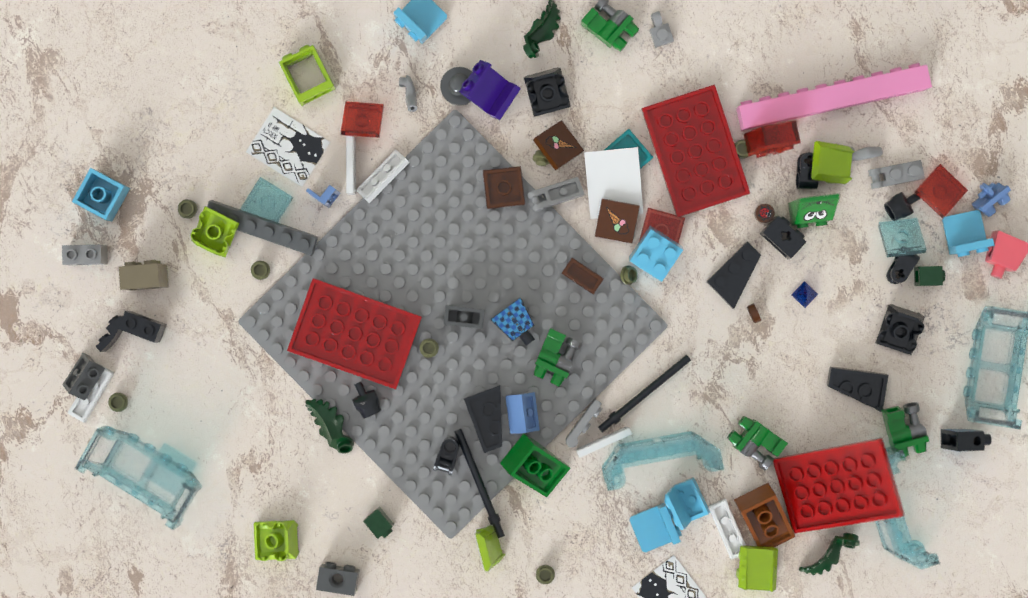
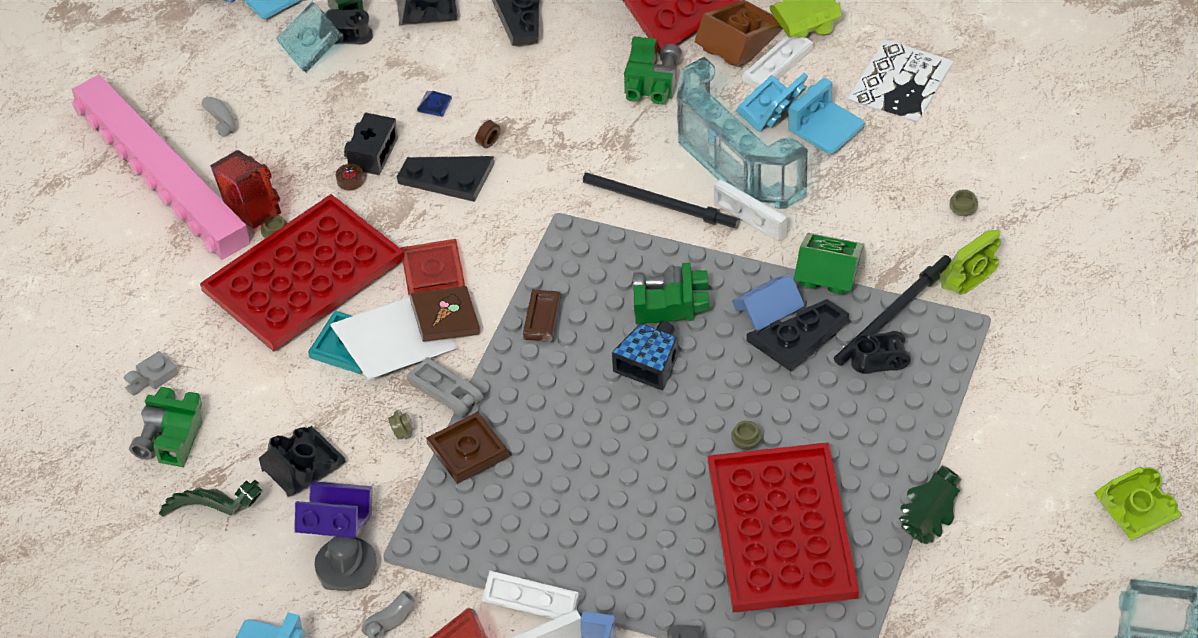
camera: 115 degrees left, 40 degrees down
(328, 584) = (1135, 407): dark grey brick -> none
(367, 402) = (869, 471): black piece -> none
(379, 523) = (1025, 395): dark green brick -> none
(464, 317) = (677, 404): dark grey brick -> none
(558, 145) = (373, 410): reddish brown tile -> none
(583, 423) = (740, 240): light grey plate -> none
(628, 275) = (512, 272): olive plate -> none
(655, 253) = (466, 249): medium azure brick -> none
(804, 172) = (274, 151): black piece -> none
(813, 210) = (317, 122): green slope -> none
(831, 162) = (246, 126): lime slope -> none
(897, 174) = (229, 77): light grey plate -> none
(900, 206) = (270, 57): black piece -> none
(941, 191) = (229, 28): clear red tile -> none

